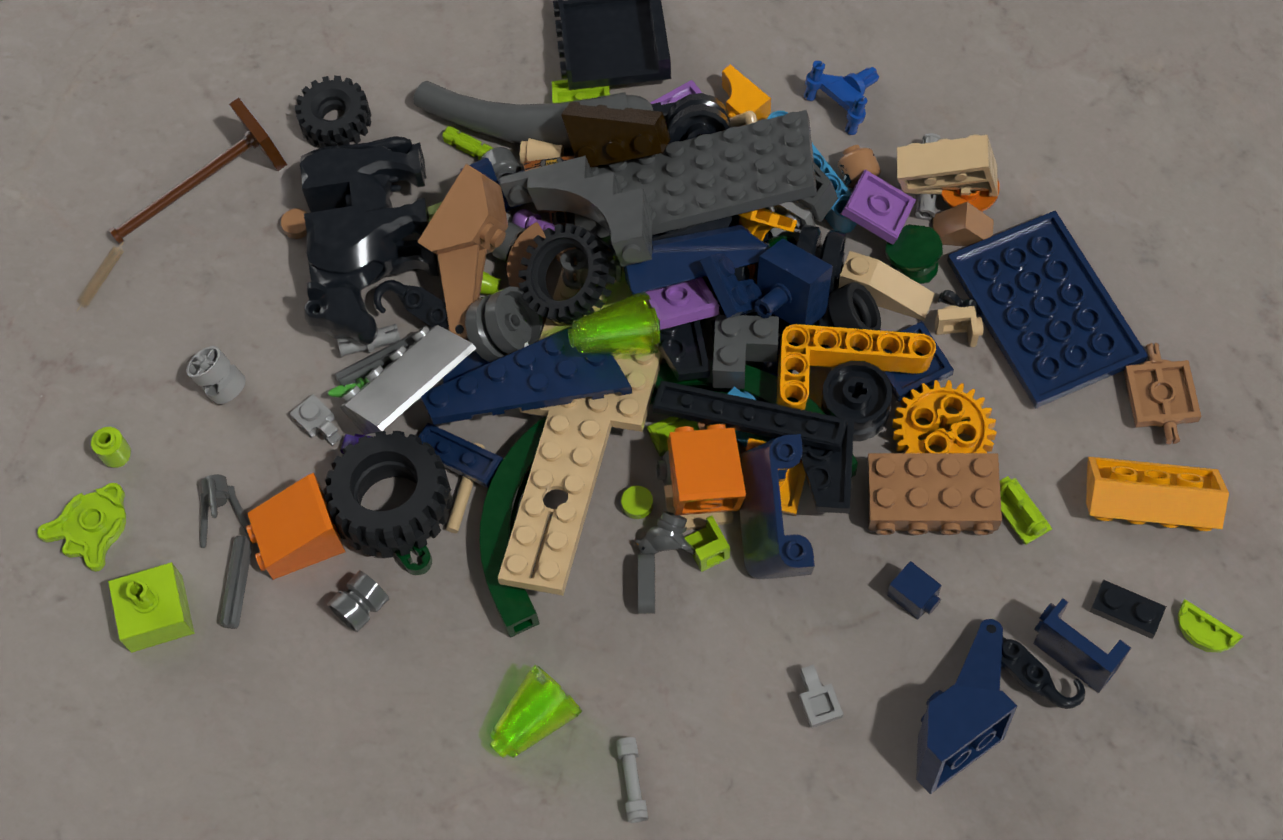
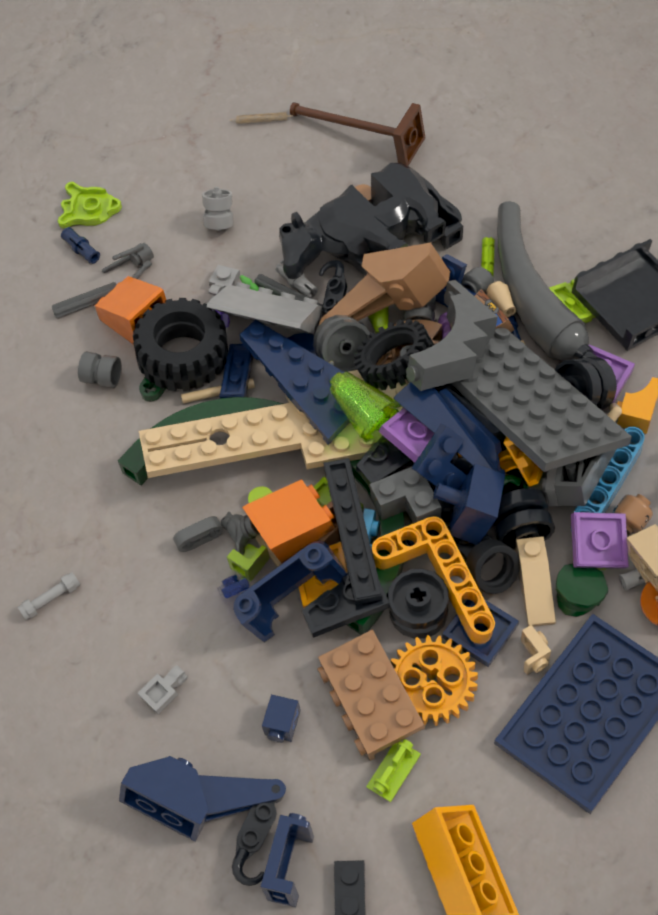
camera: 65 degrees right, 5 degrees down
(111, 447) = (140, 185): lime brick -> none
(130, 560) = (80, 245): none -> dark blue pin
(151, 607) = (43, 263): lime brick -> none
(332, 96) = (462, 157): black tyre -> none
(532, 714) = (68, 509): clear neon green cone -> none
(614, 134) = (531, 326): dark brown wedge -> none
(741, 569) = (233, 586): none -> clear blue plate
(951, 298) = (558, 641): black piece -> none
(963, 225) = (629, 616): medium nougat slope -> none
(1162, 393) = (564, 839): medium nougat plate -> none

